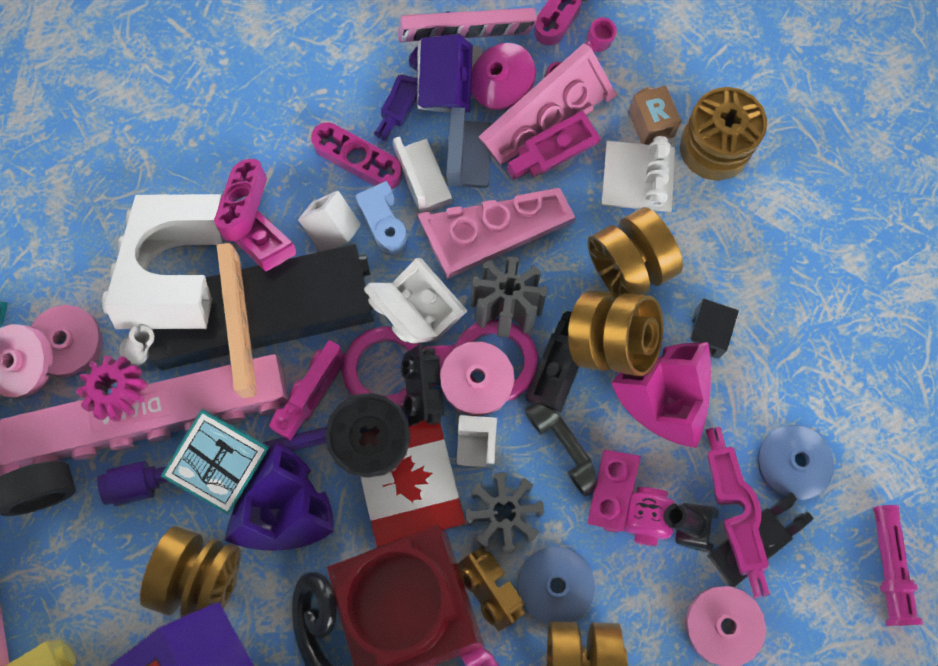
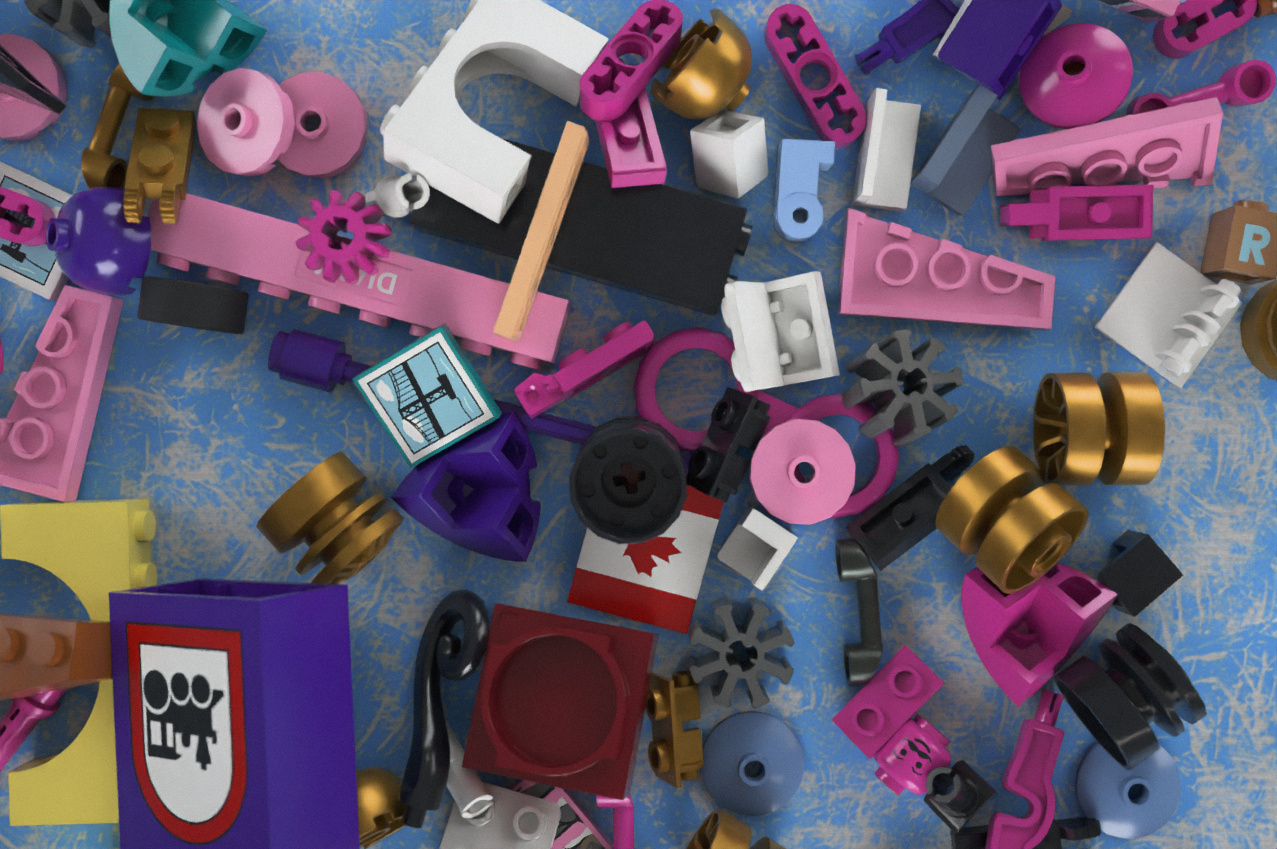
camera: 30 degrees right, 15 degrees up
(290, 183) = (706, 70): none -> pearl gold cylinder
(755, 398) = (1136, 689): none -> black wheel

